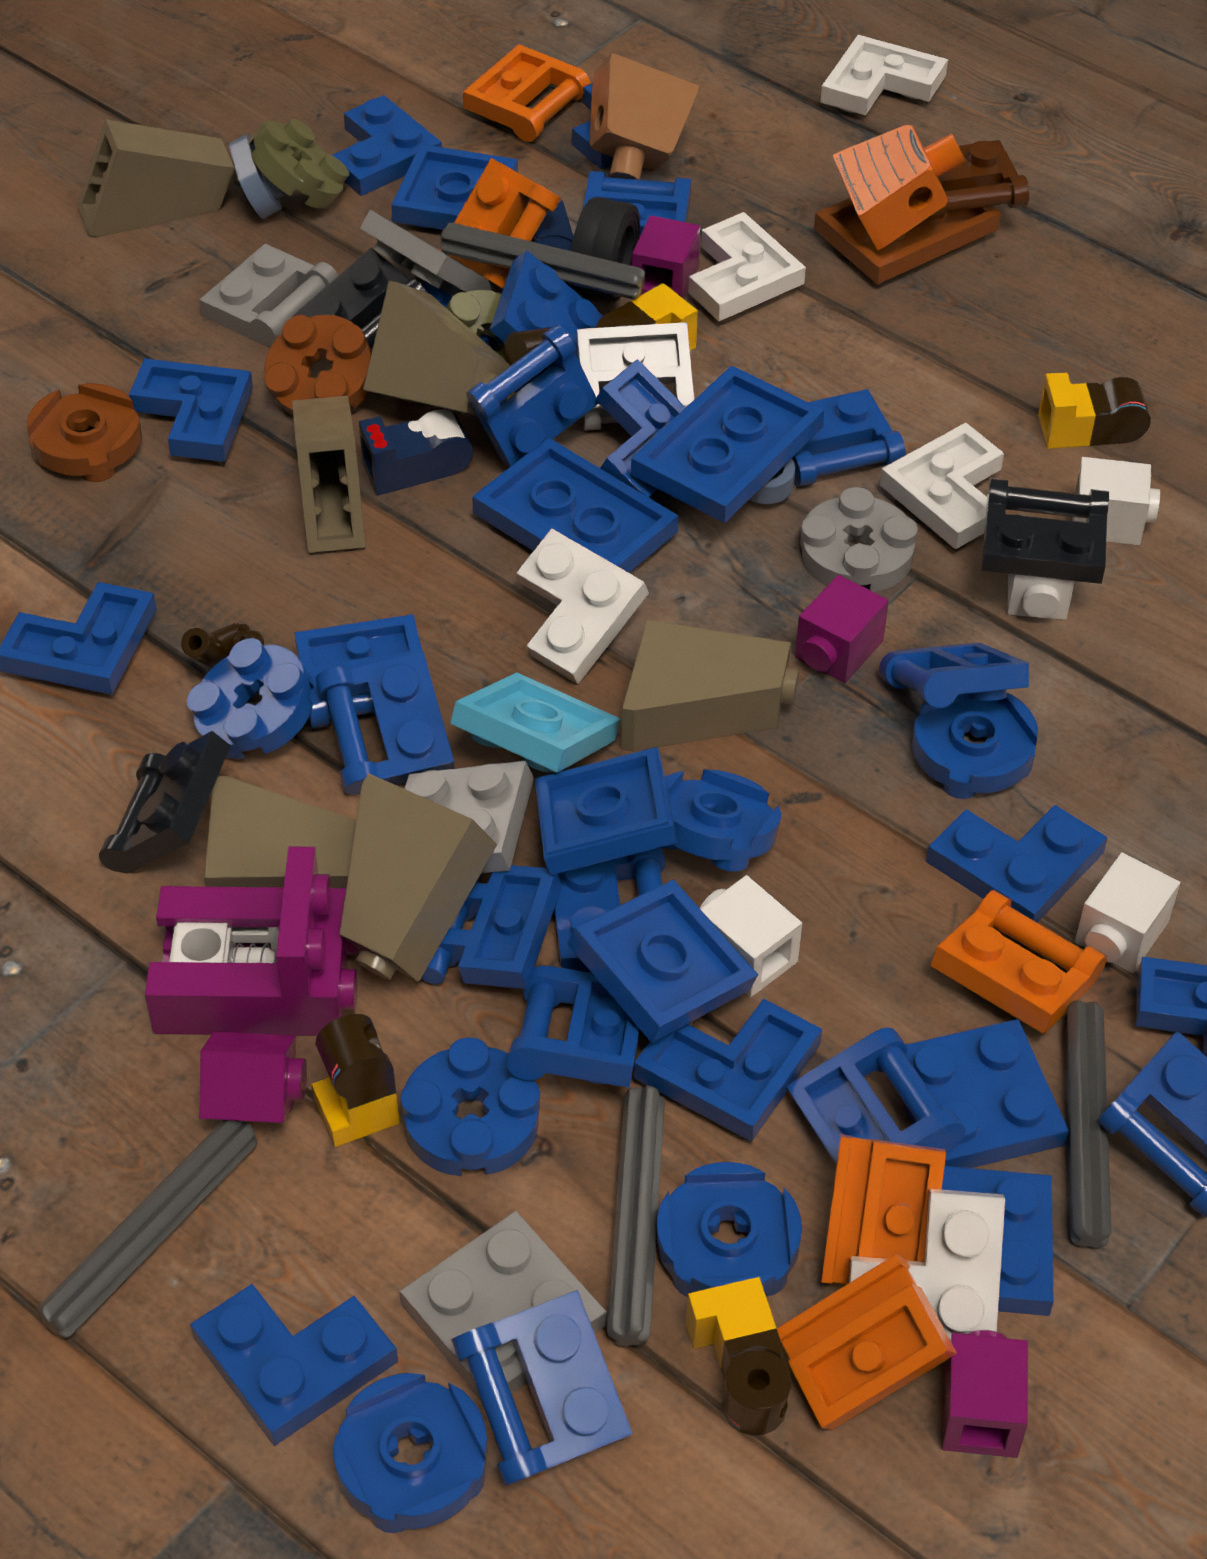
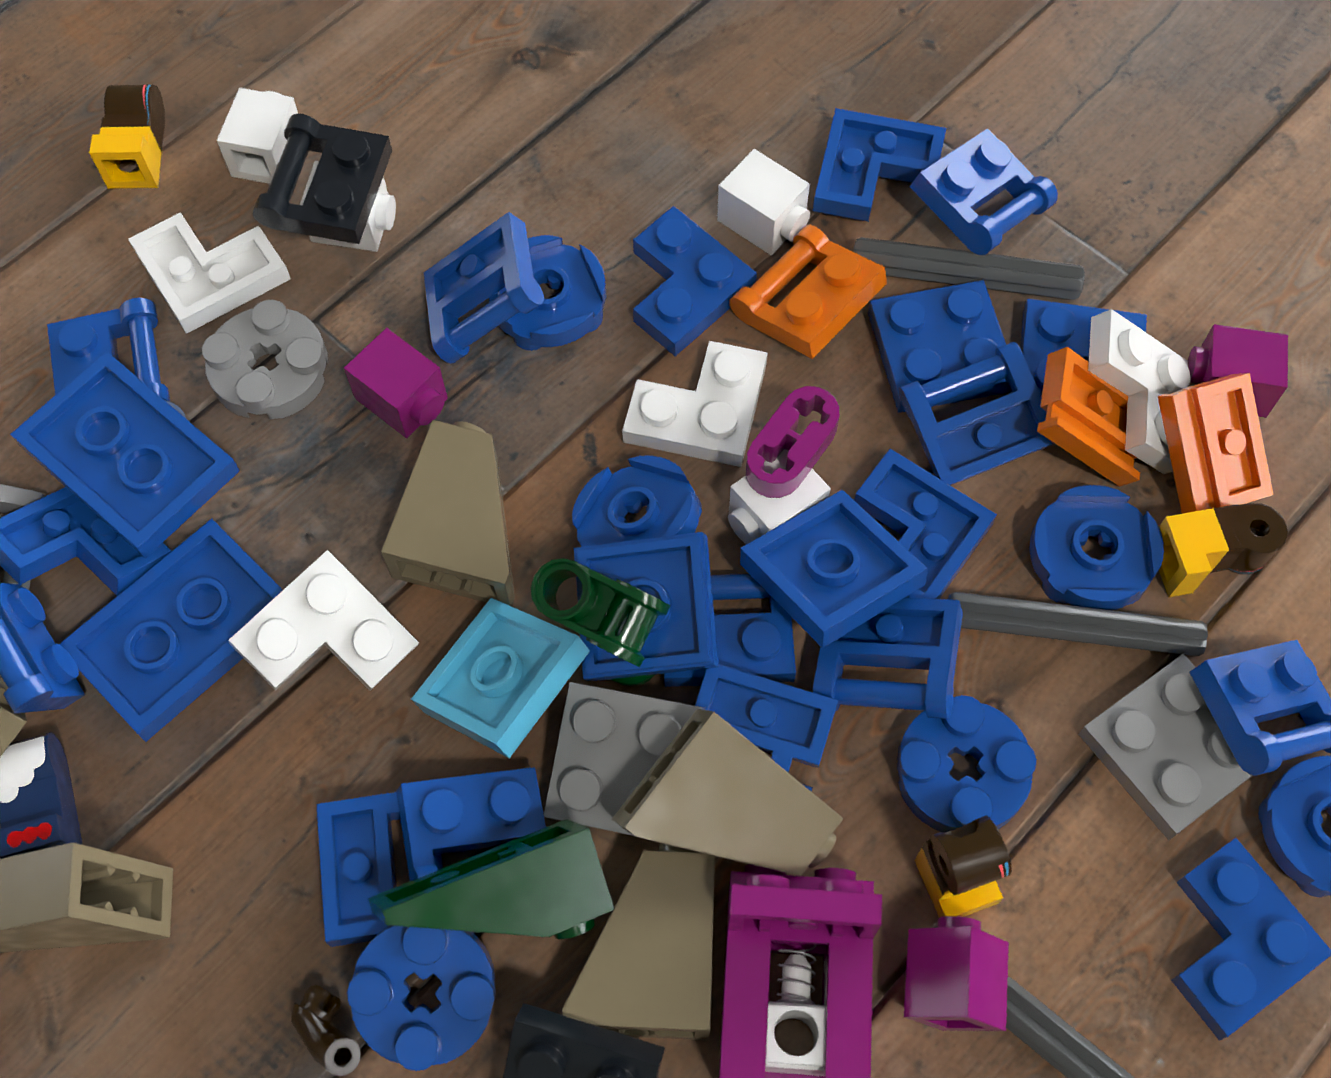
camera: 85 degrees left, 15 degrees up
(324, 725) = (524, 887): none -> dark green slope
(585, 753) = (608, 613): none -> dark green piece
(797, 914) = (781, 434): none -> magenta beam
(852, 893) = (703, 422): none -> white plate

